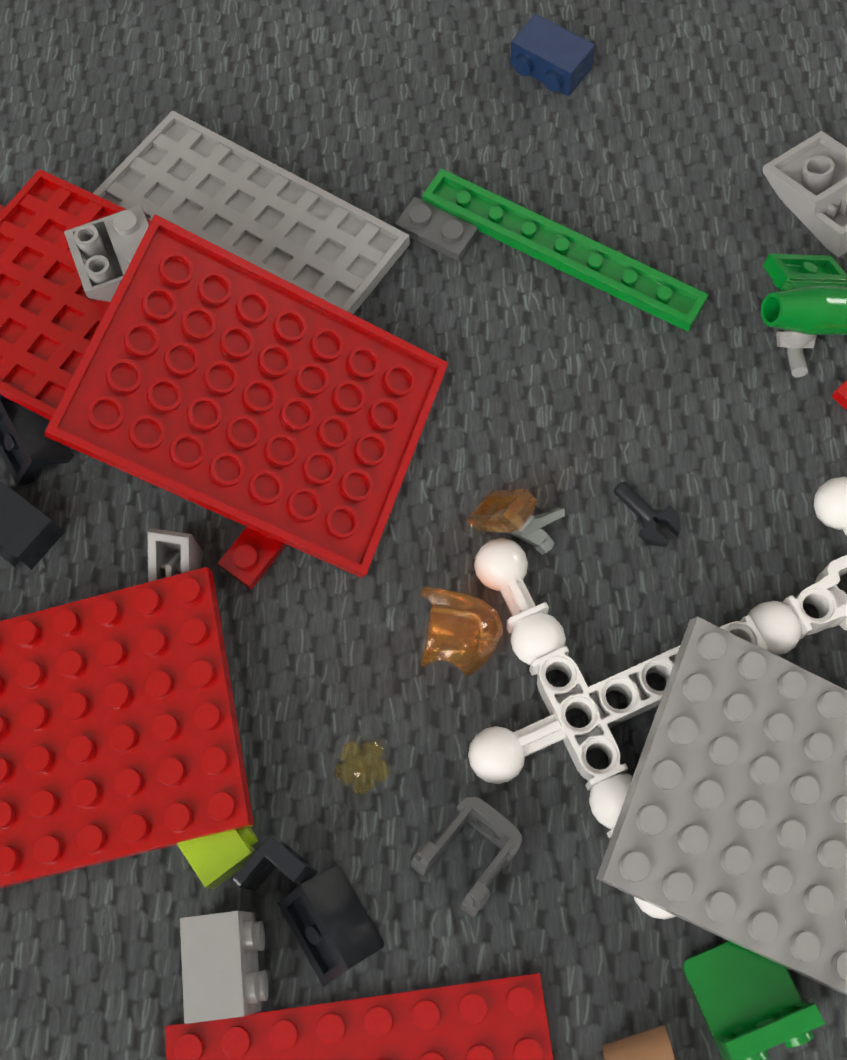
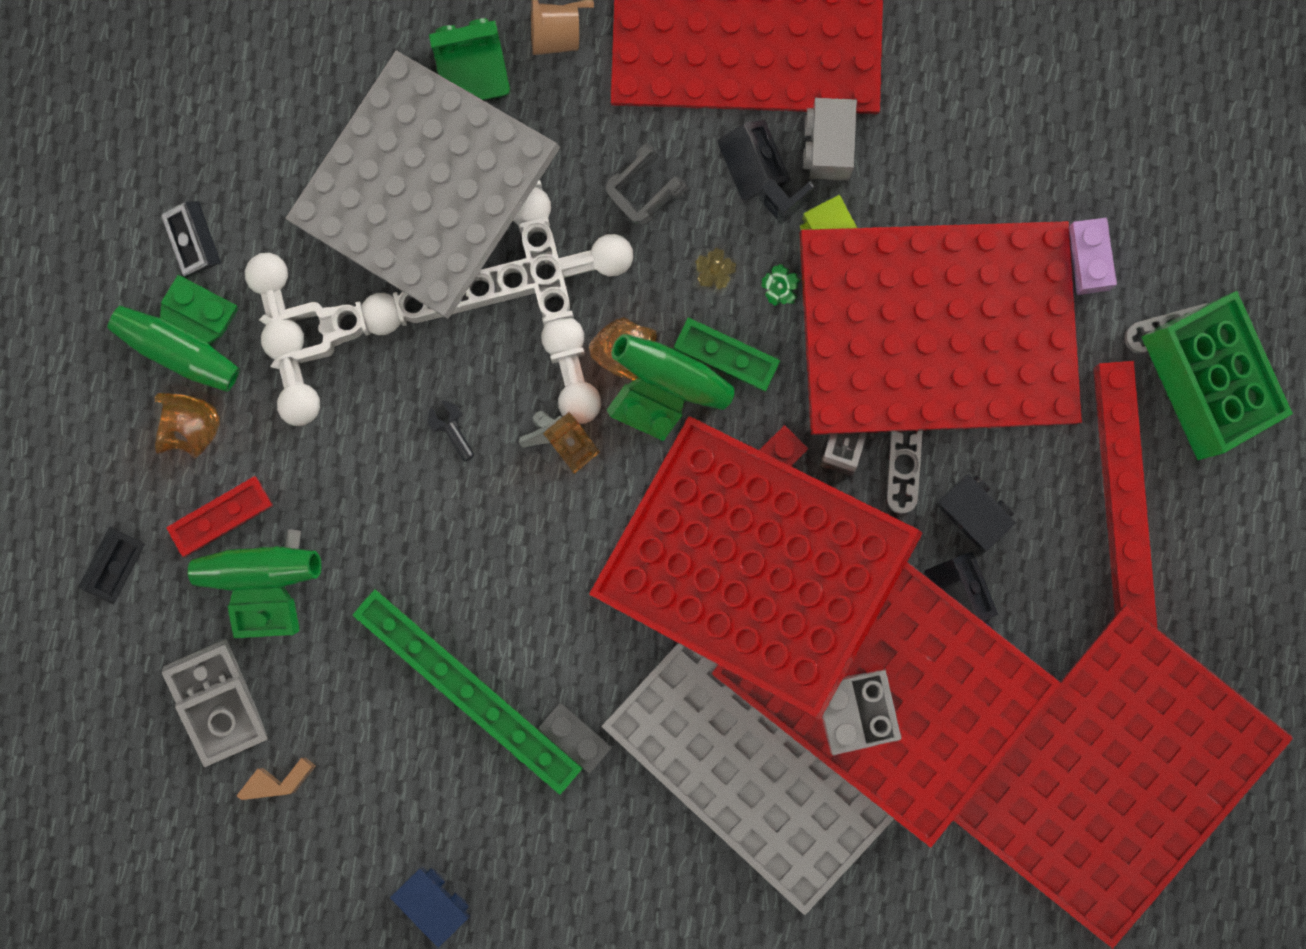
camera: 175 degrees left, 15 degrees up
(112, 538) = (893, 489): none -> light grey beam
(274, 756) = (780, 285): none -> green plant
(330, 657) = (726, 354): none -> green plate
(404, 593) = (663, 383): none -> green plate
(744, 126) = (266, 785): none -> medium nougat slope

